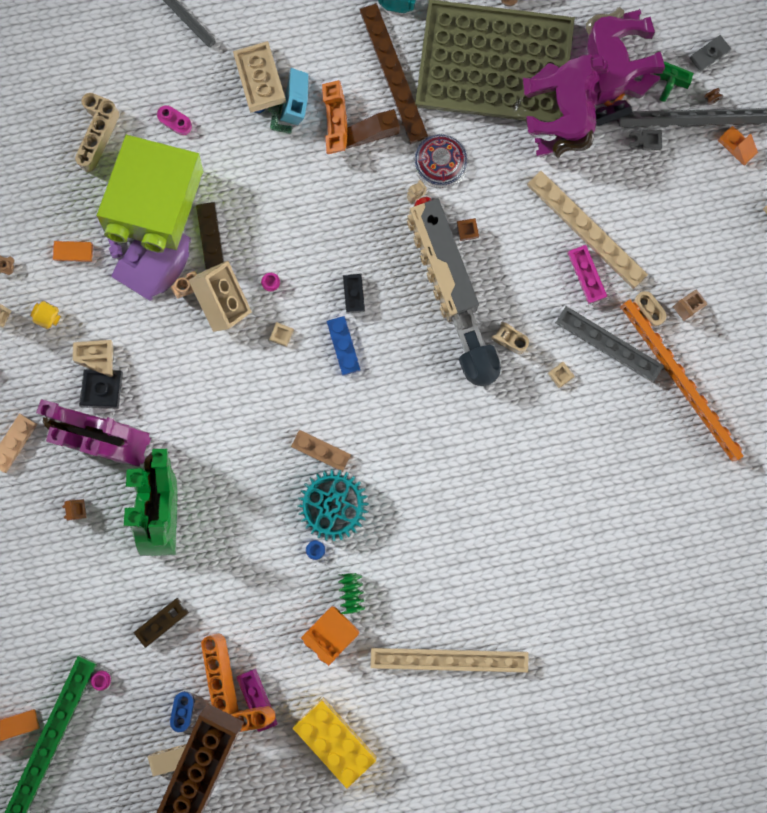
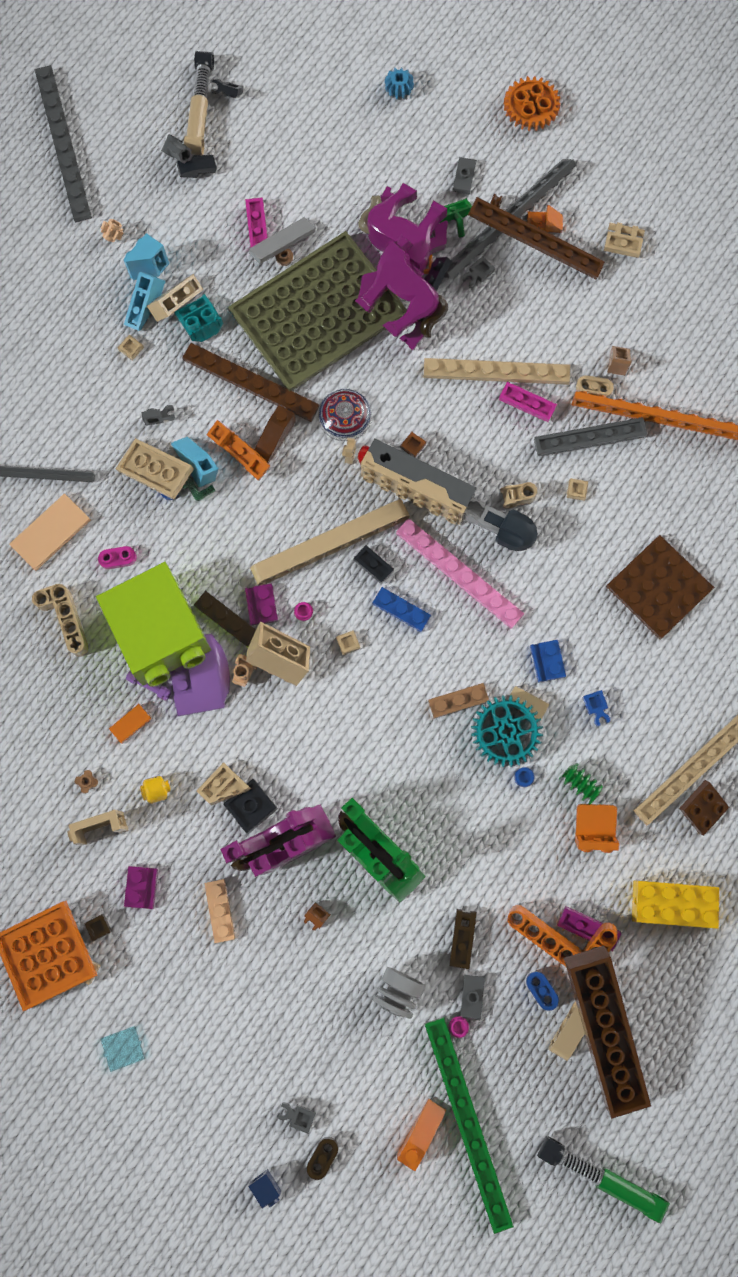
camera: 40 degrees left, 5 degrees down
(78, 617) = (398, 993): none -> light grey wheel
(130, 668) = (472, 996): none -> dark grey plate
(144, 57) = (50, 532): none -> light nougat tile
(245, 249) = (261, 604): none -> magenta plate
(297, 36) = (155, 416): none -> dark grey plate
(337, 248) = (329, 542): none -> tan beam
(374, 507) = (538, 704): none -> tan tile
(411, 358) = (460, 573): none -> bright pink plate
(414, 482) = (548, 661): none -> blue plate
(418, 546) = (596, 704): none -> blue plate
(423, 694) = (704, 807): none -> reddish brown plate
(551, 504) = (660, 587): none -> reddish brown plate
(715, 152) = (536, 238): none -> reddish brown plate

